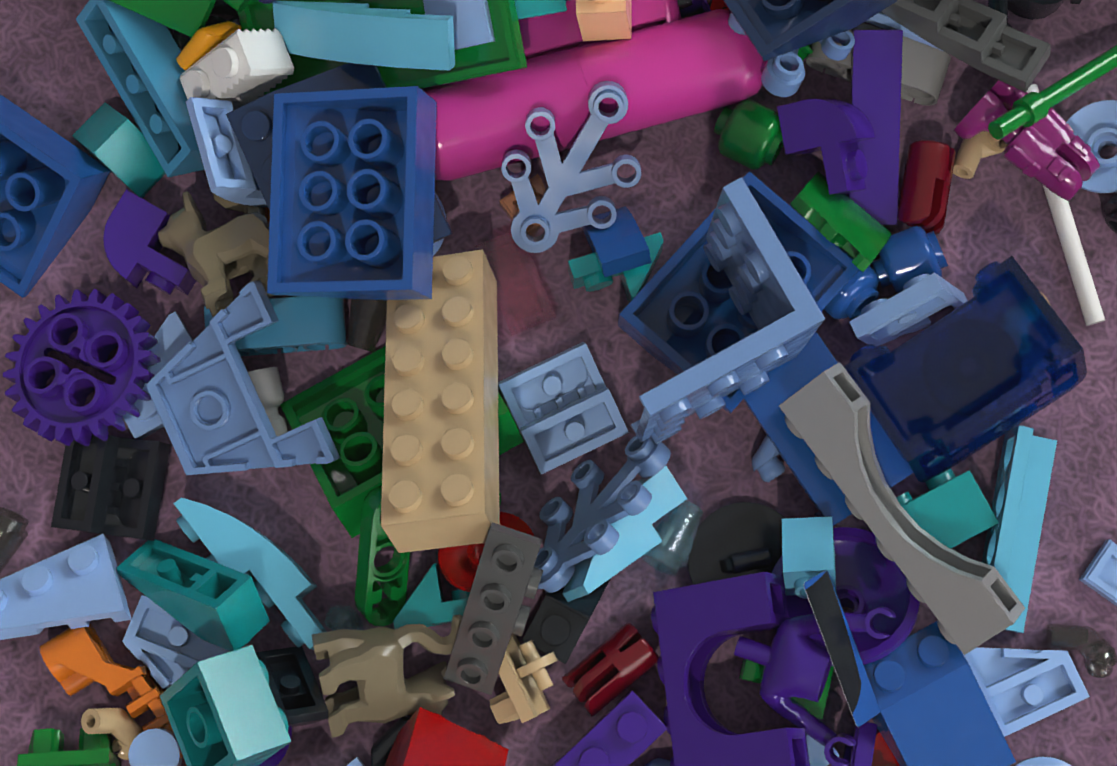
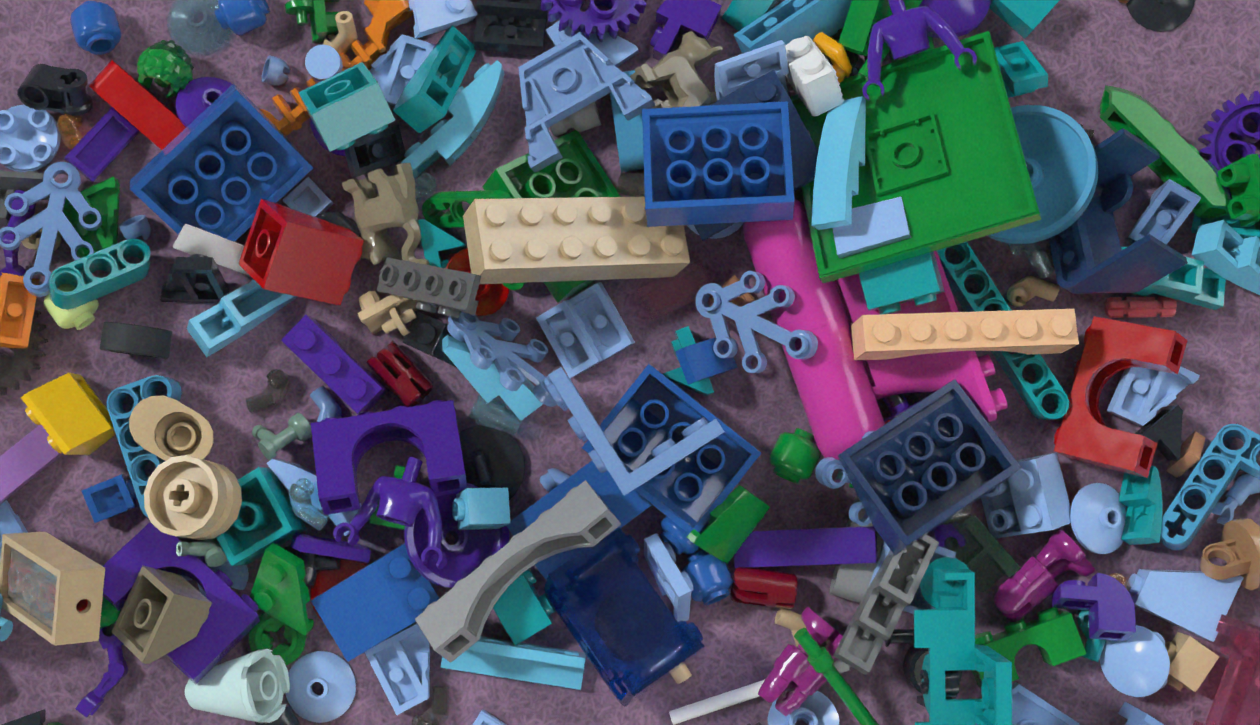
camera: 90 degrees right, 5 degrees up
(833, 129) = (798, 516): dark purple brick -> none
(841, 648) = (414, 530): black sticker -> none

